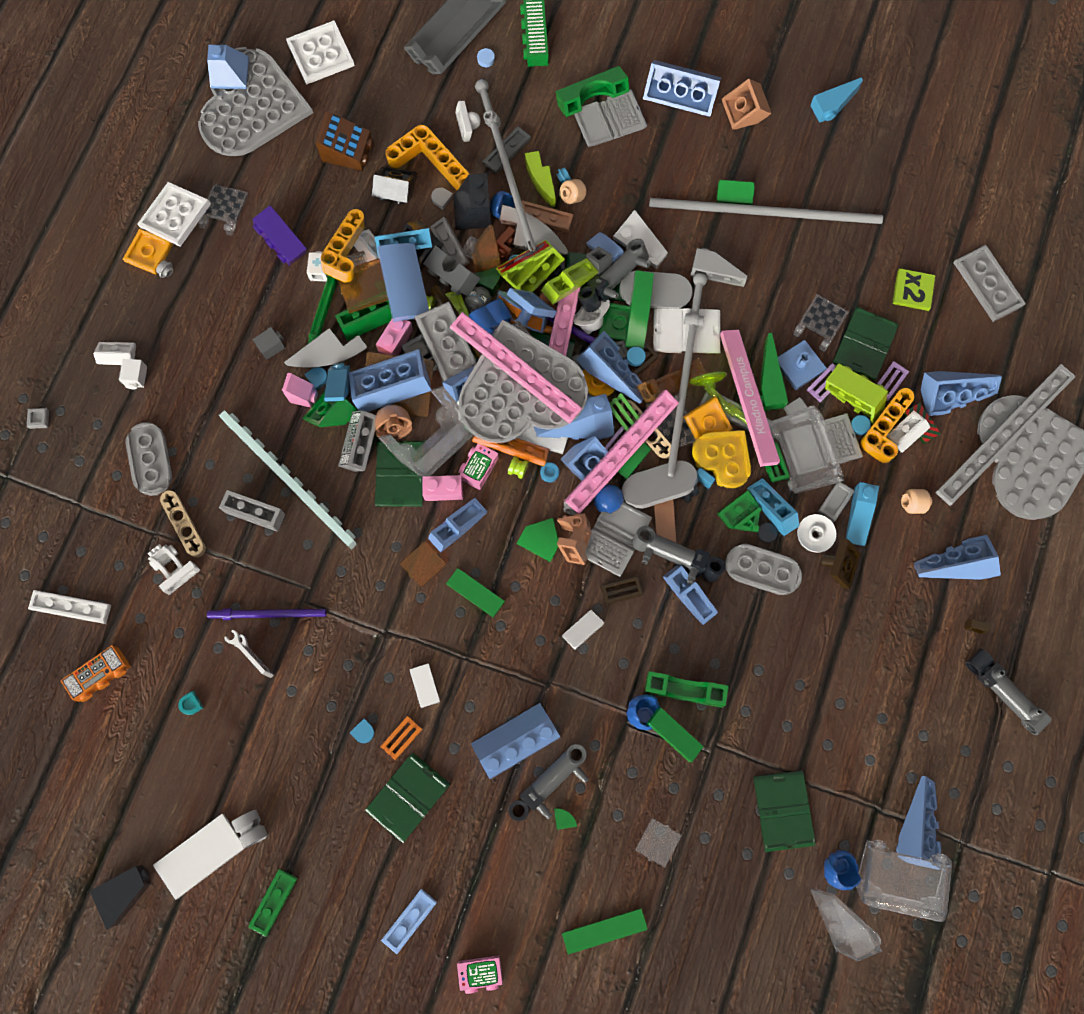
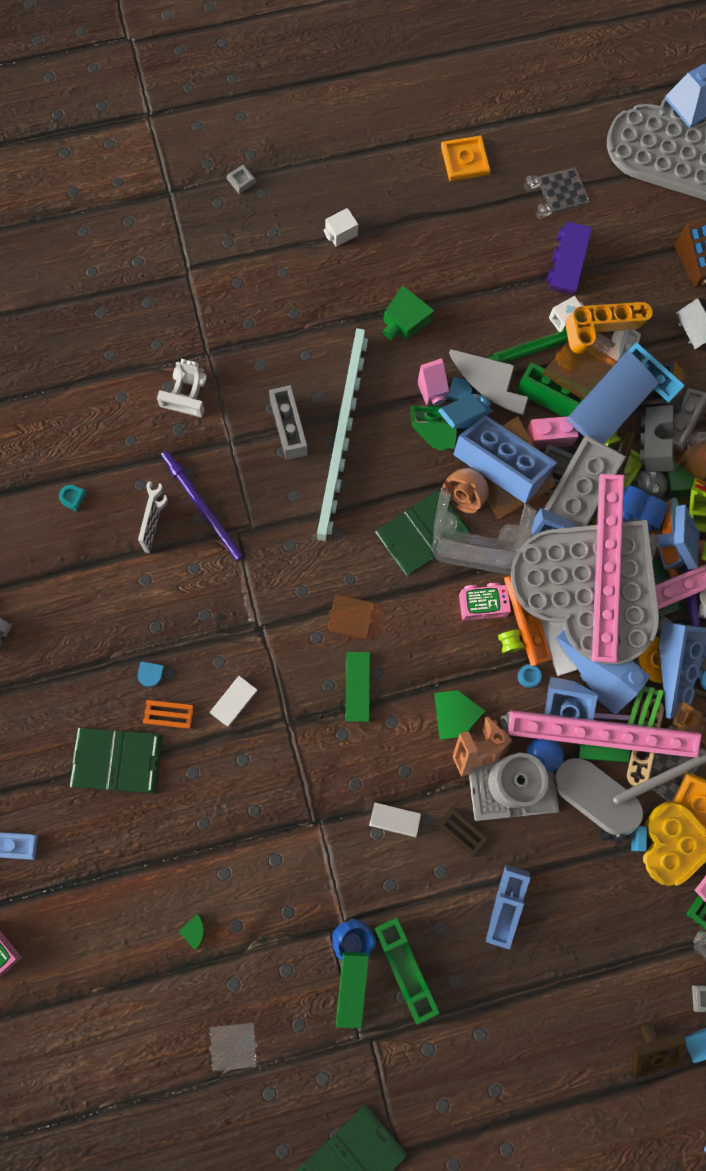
camera: 50 degrees right, 0 degrees up
(69, 607) = (89, 329): white tile -> none
(95, 674) = (43, 395): brick -> none
(114, 352) = (347, 196): white slope -> none
(148, 459) = (272, 298): light grey tile -> none
(164, 269) = (459, 184): light grey plate -> none
(174, 214) = (518, 153): white plate -> none
(182, 524) = (234, 371): tan beam -> none
(234, 374) = (406, 315): none -> green torso
(269, 343) = (459, 324): dark grey brick -> none
(358, 441) = (424, 471): light grey brick -> none
(442, 488) = (437, 582): bright pink brick -> none
(457, 524) = (412, 622): medium blue slope -> none
(515, 741) = (238, 828): medium blue slope -> none
(548, 782) = (219, 890): dark grey piece -> none
(604, 931) = (110, 1050): green tile -> none
(614, 528) = (531, 777): none -> light grey wheel
(665, 520) = (561, 830): nougat tile -> none
(695, 561) = (544, 886): dark grey piece -> none
(741, 513) = (631, 904): green slope -> none
(763, 569) = (589, 968): light grey tile -> none
(767, 533) = (630, 945): black tile -> none
(774, 507) = (663, 935): dark azure slope -> none
(823, 527) = (680, 1002): white dish -> none

